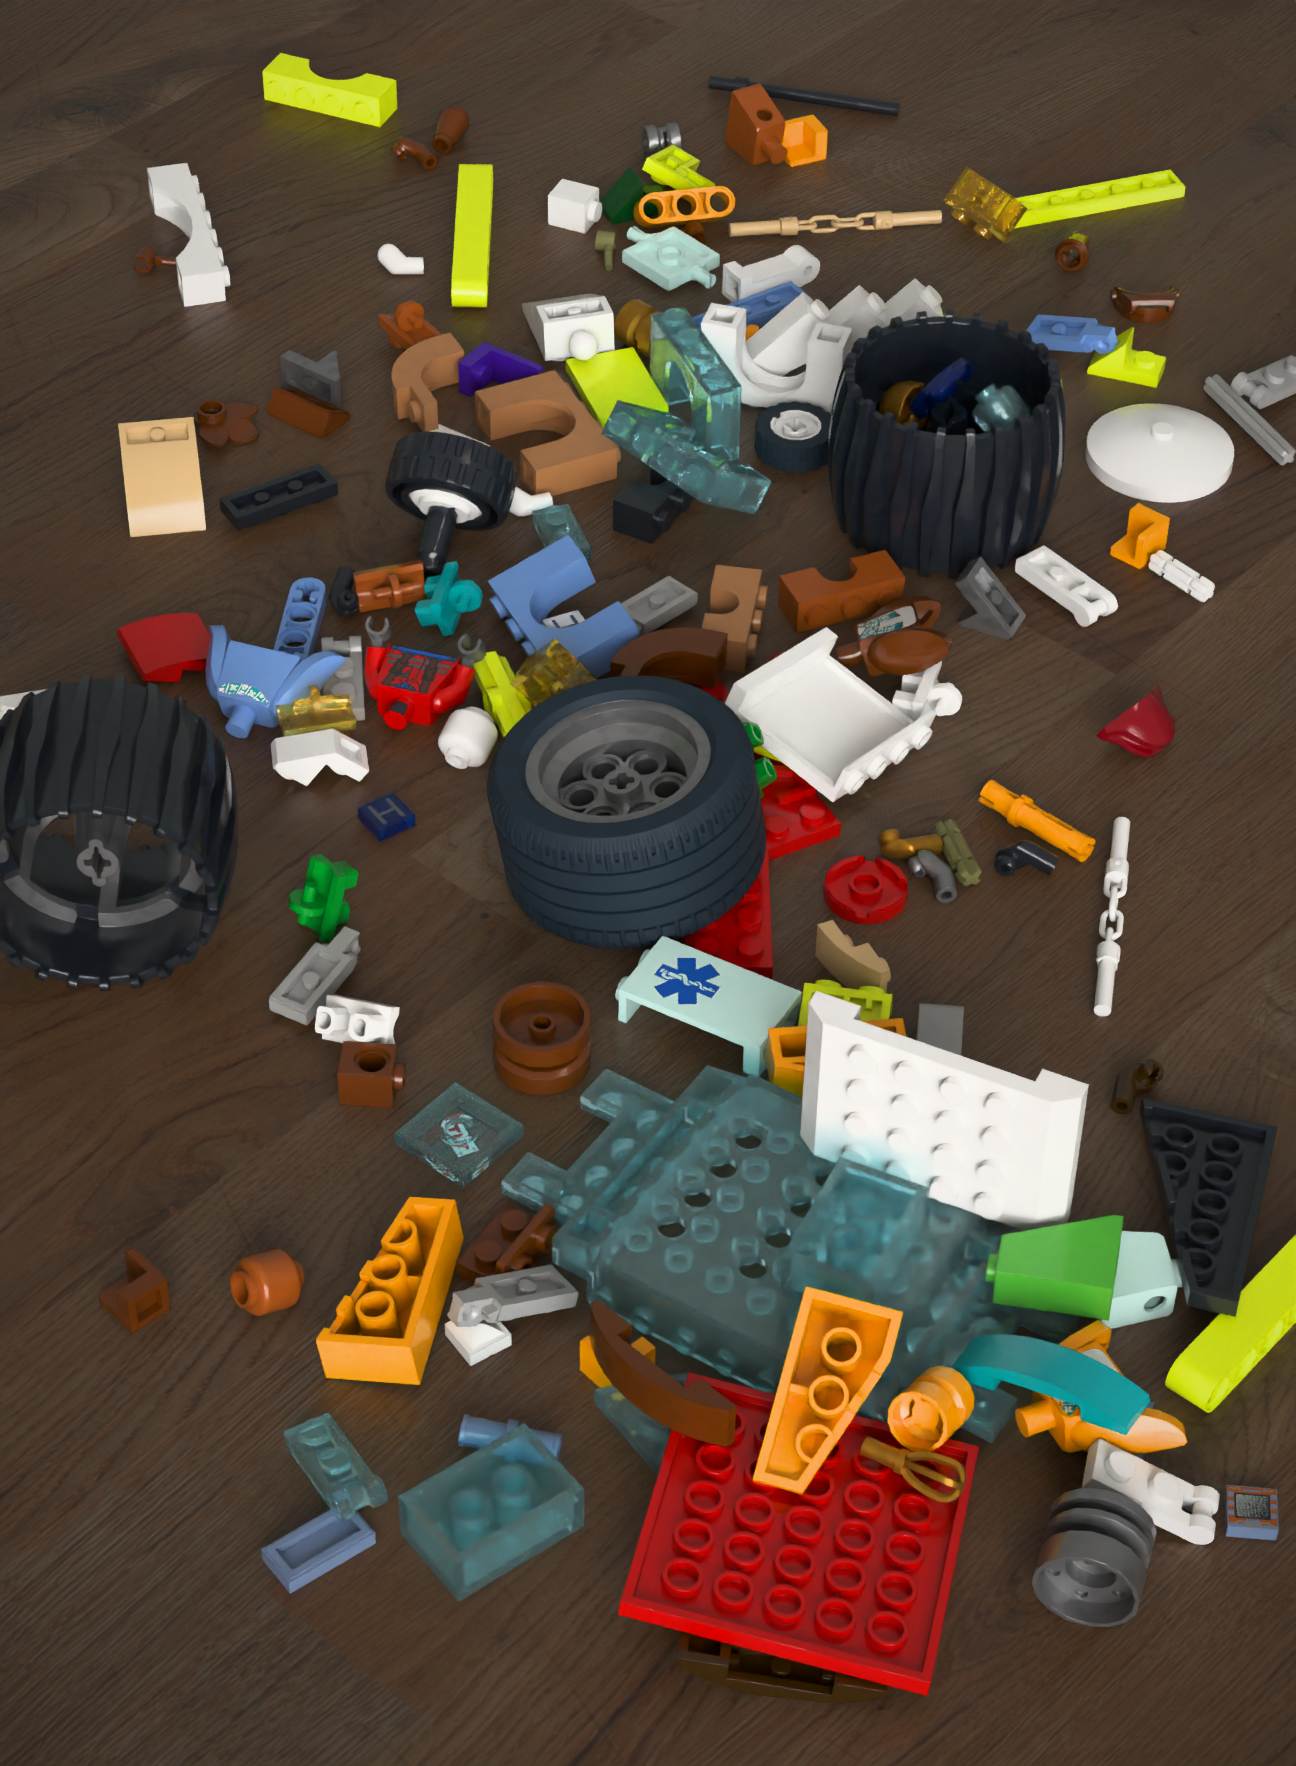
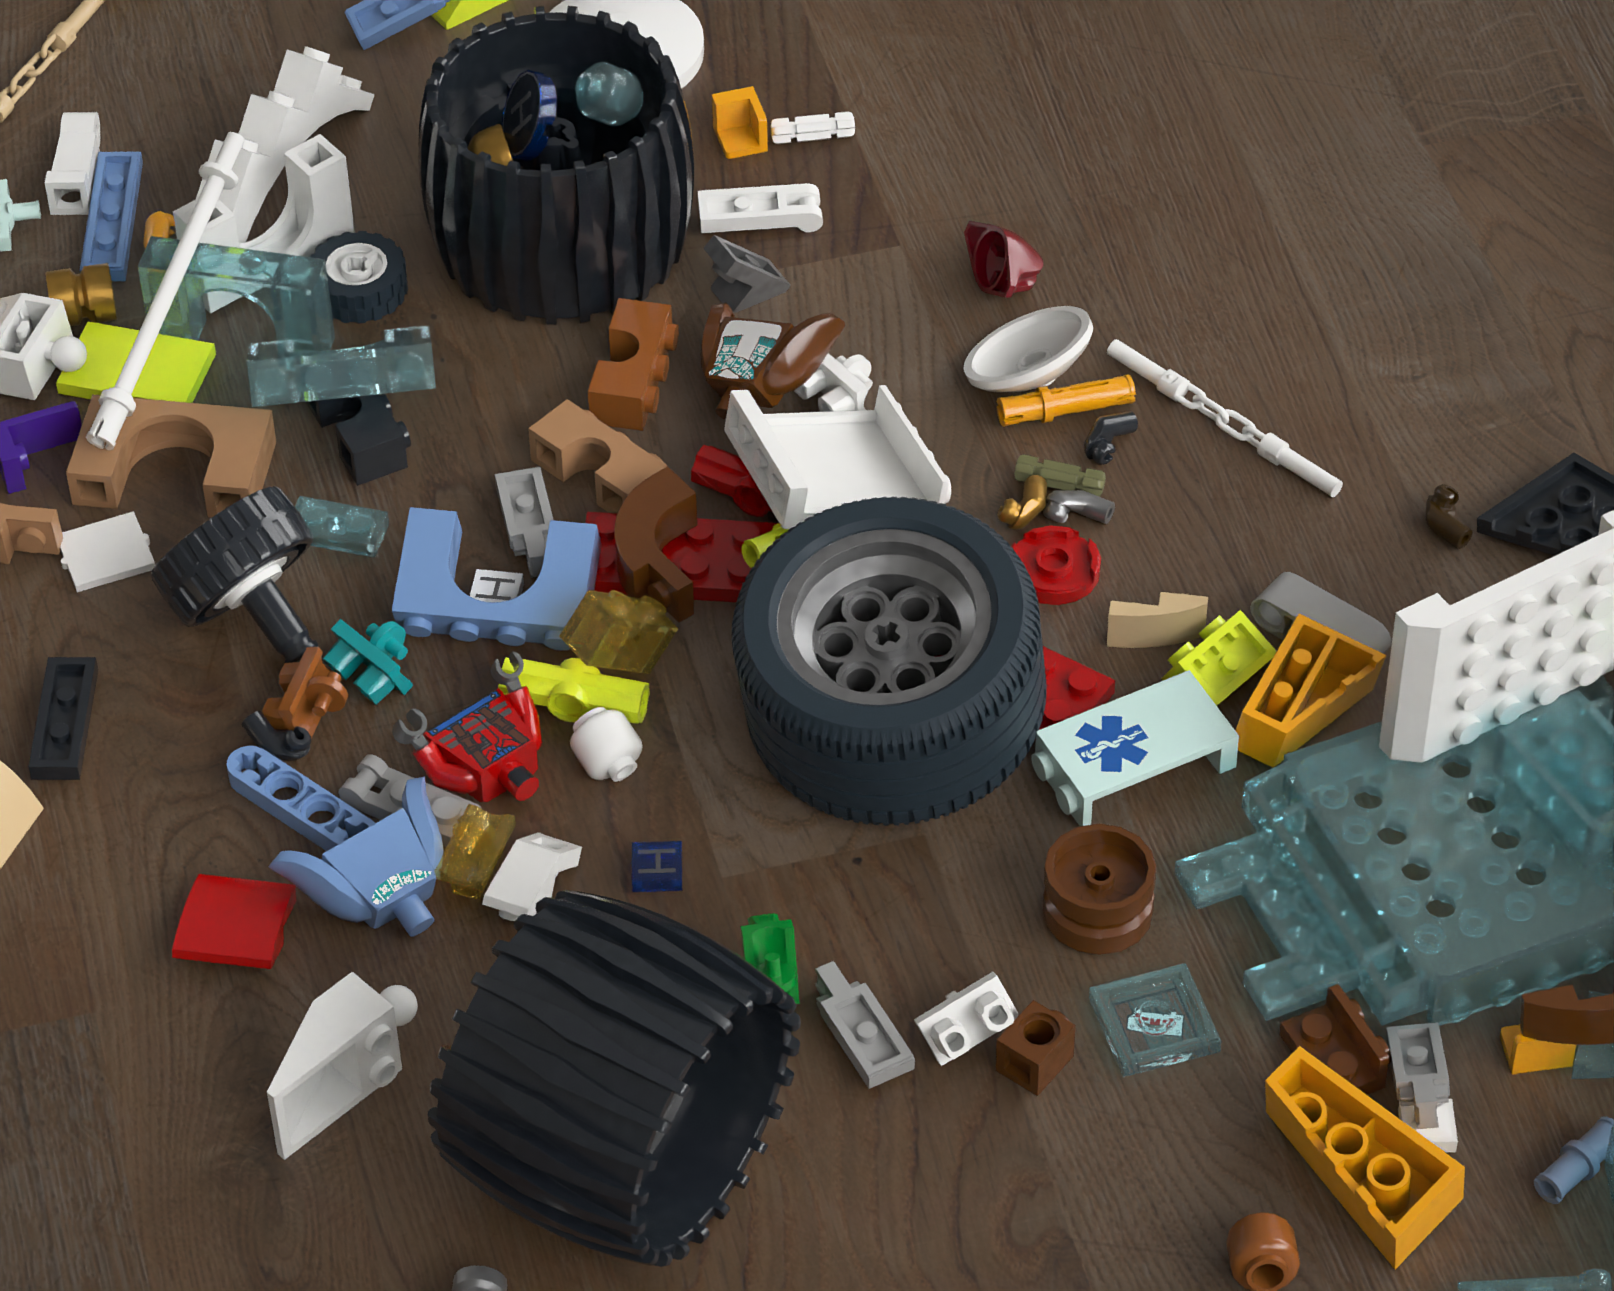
camera: 55 degrees left, 5 degrees up
(543, 373) = (117, 401): none -> white bar
(1053, 775) = (1029, 350): none -> white dish

